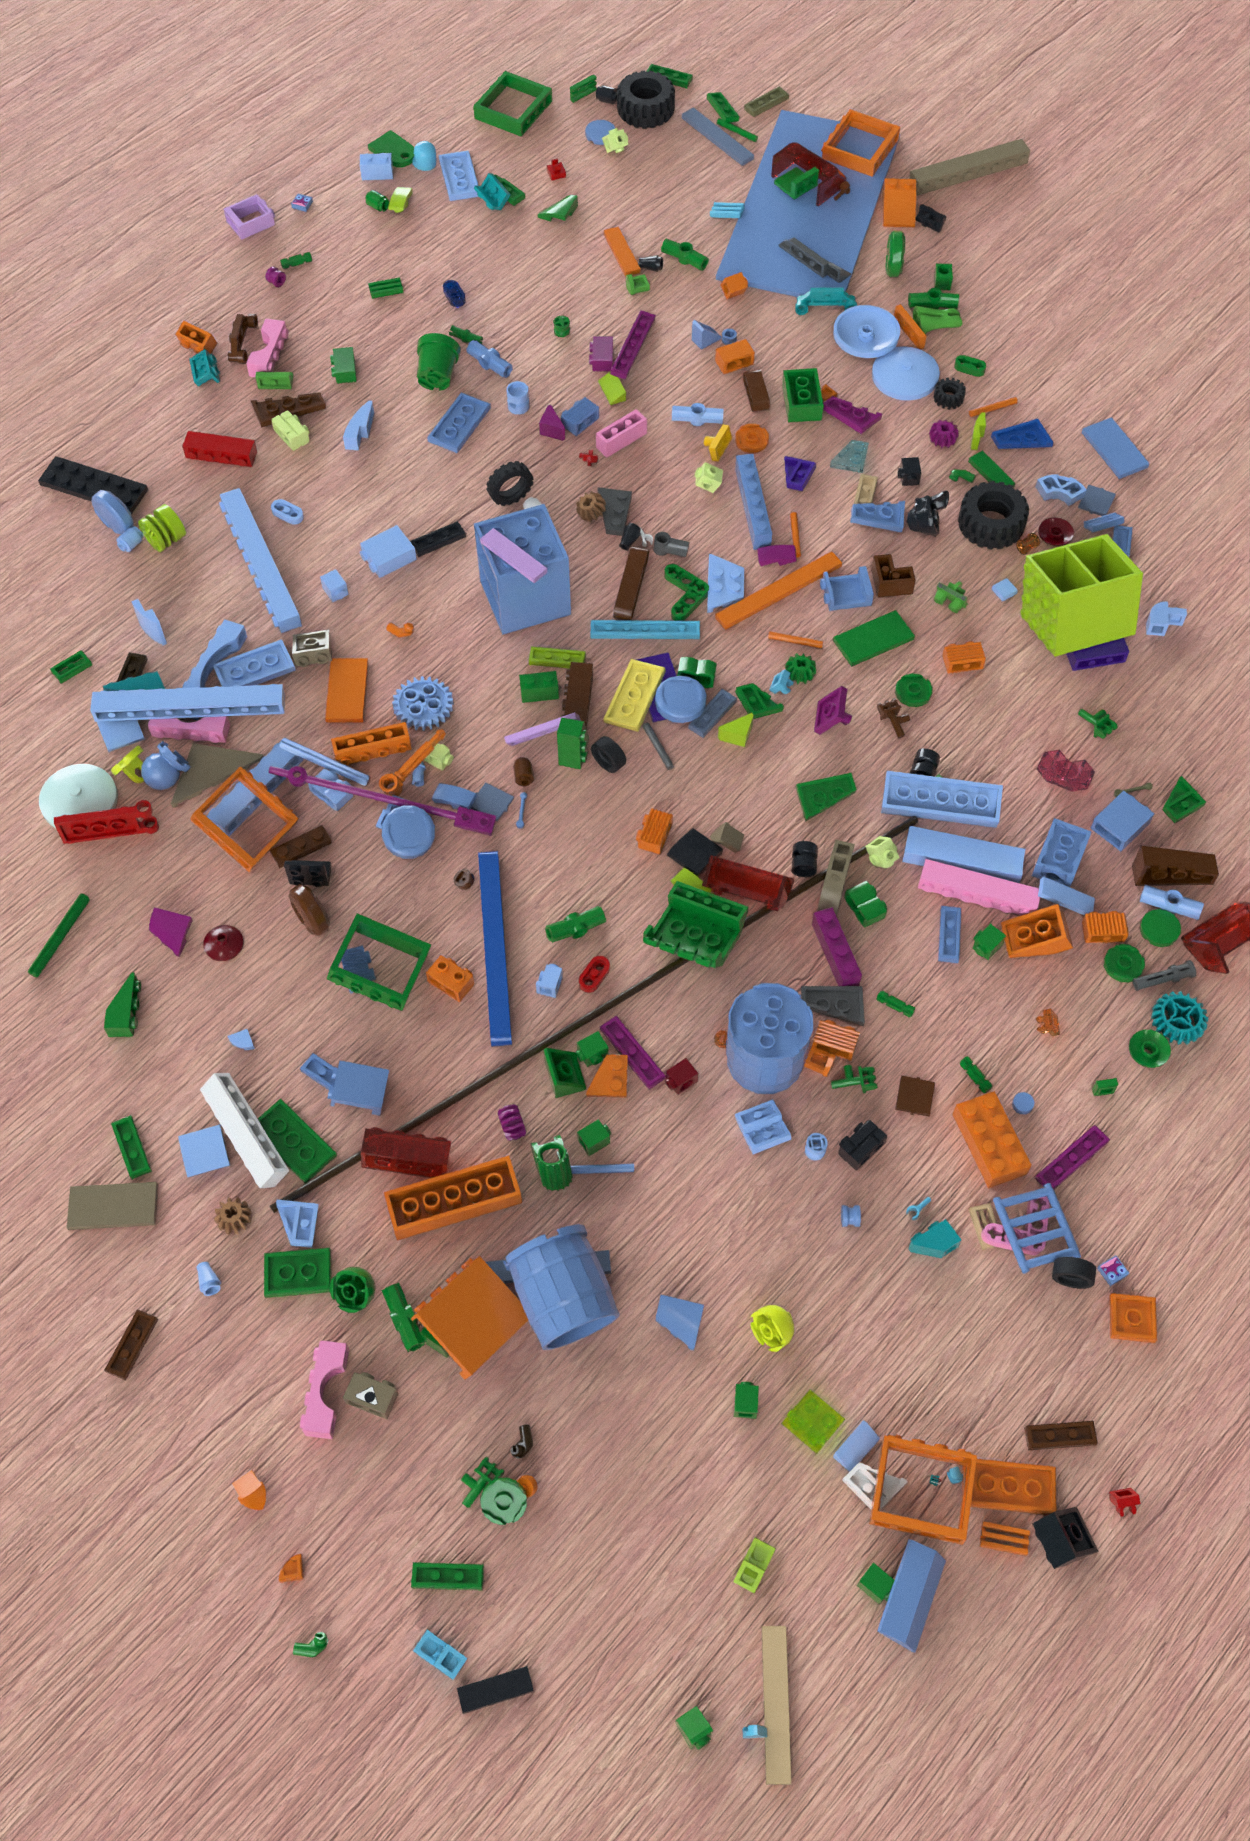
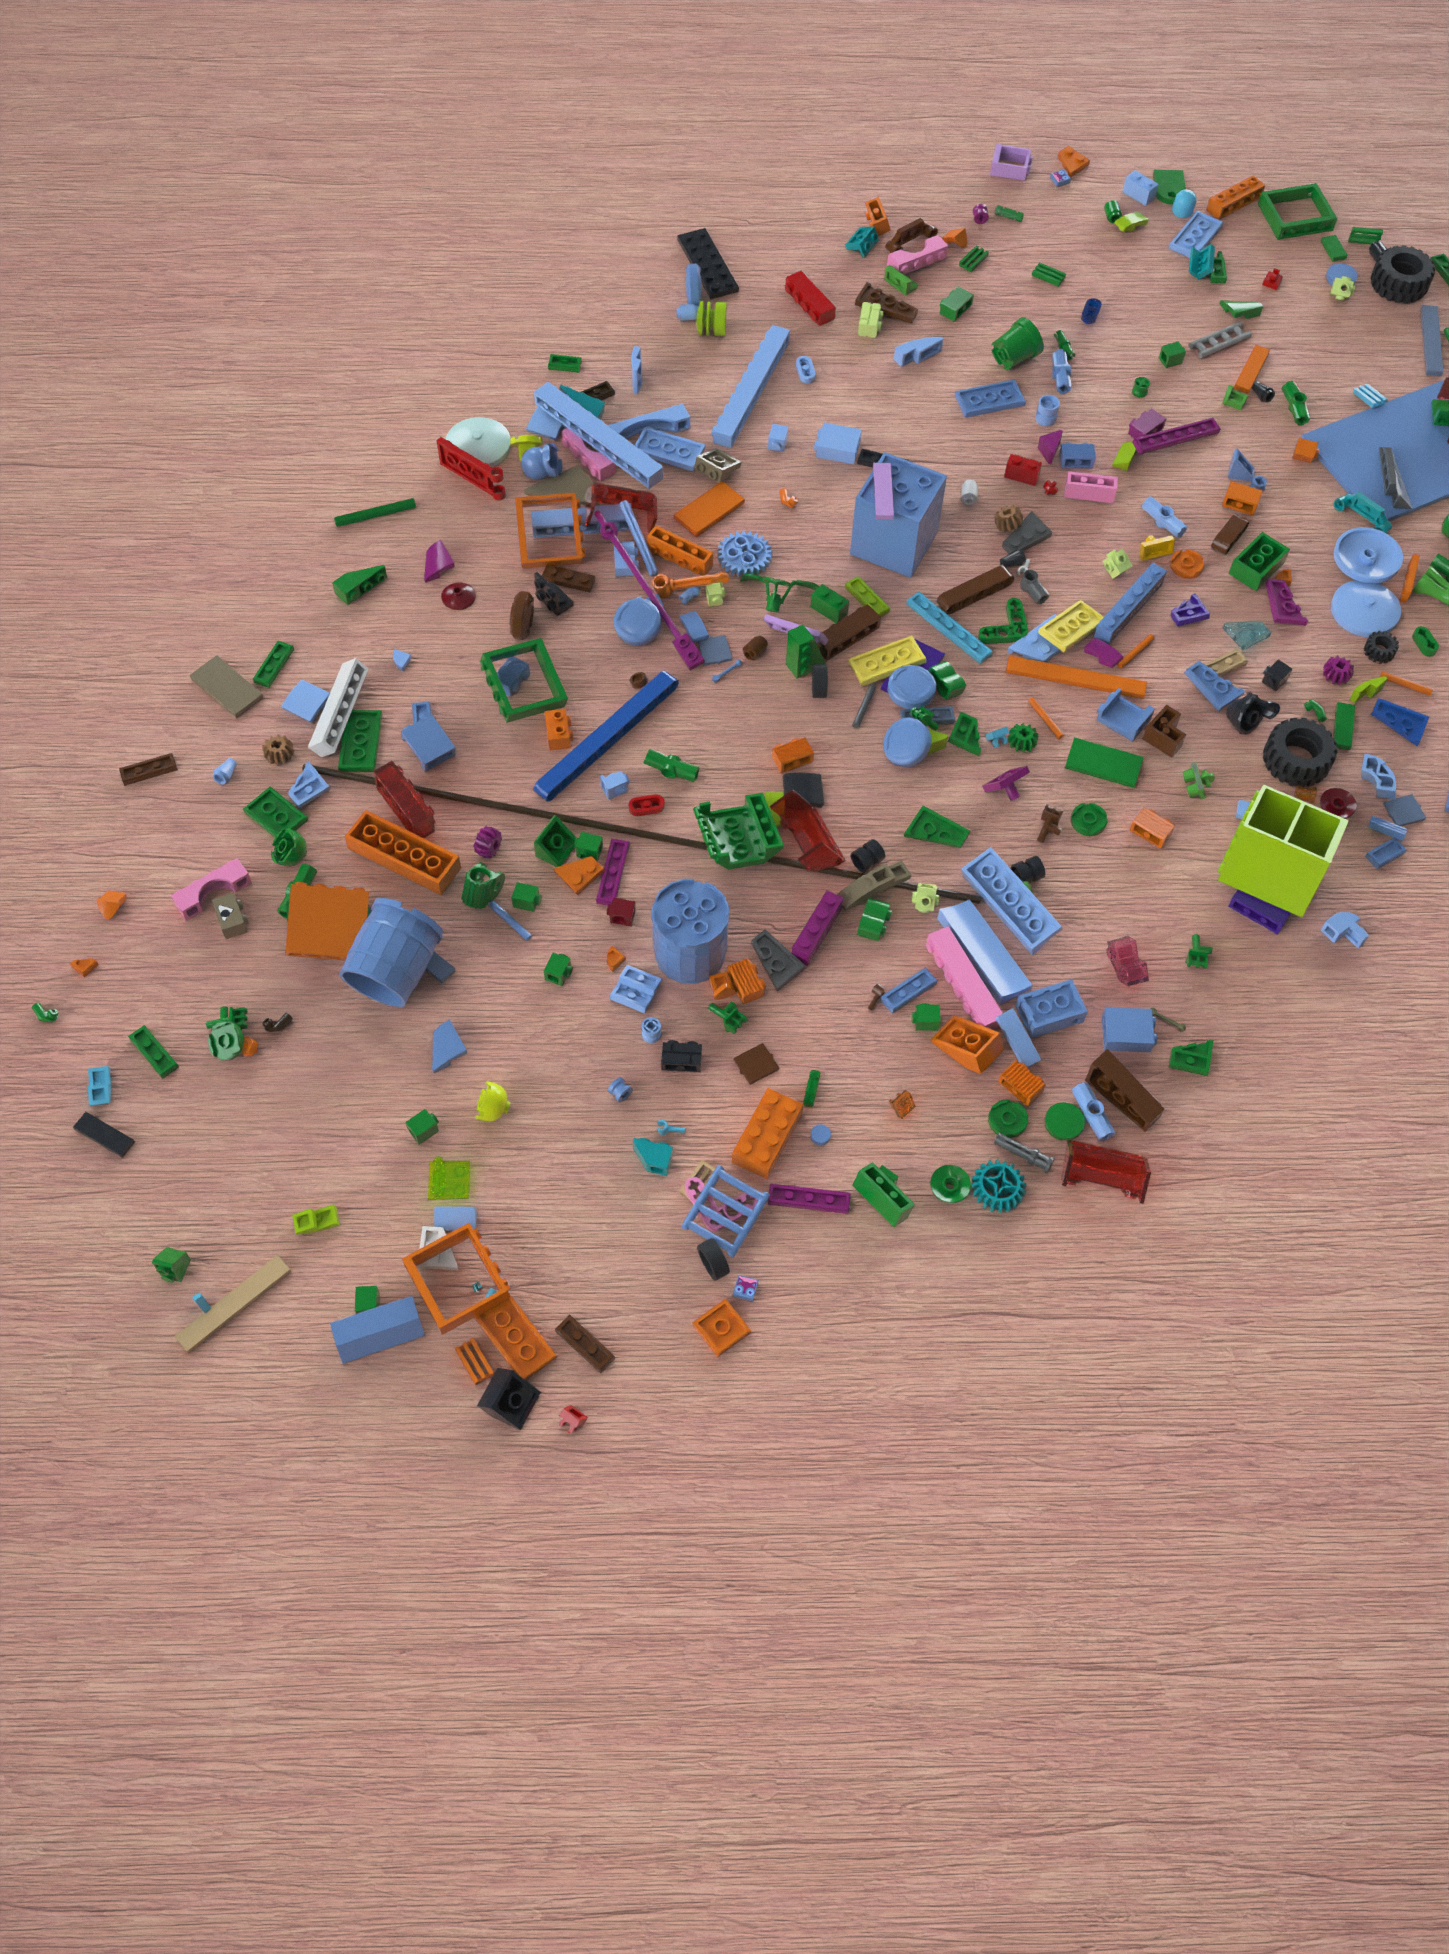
camera: 45 degrees right, 0 degrees up
(250, 752) = (614, 495): none -> clear red windscreen
(278, 308) = (958, 236): none -> orange tile
(294, 181) = (1072, 160): none -> orange wing
(310, 309) = (971, 257): none -> green tile
(455, 124) = (1235, 197): none -> orange brick
(494, 720) = (774, 600): none -> green plant
(502, 475) = (972, 448): black tyre -> none
(554, 283) = (1172, 354): none -> green brick
(555, 459) = (1022, 469): none -> red brick
(570, 114) = (1334, 248): none -> green tile
(572, 251) = (1211, 338): none -> light grey bar
(689, 1169) = (558, 969): none -> green brick
(717, 1119) = (614, 958): none -> orange tile
(720, 715) = (924, 716): none -> green arm
(728, 837) = (836, 800): dark tan tile -> none
(730, 745) = (907, 742): none -> medium blue piece
(733, 552) = (1071, 626): none -> light yellow tile
(895, 1004) = (815, 997): green axle -> none
(932, 954) = (878, 990): none -> reddish brown hand
(1121, 1102) = (883, 1194): none -> green brick

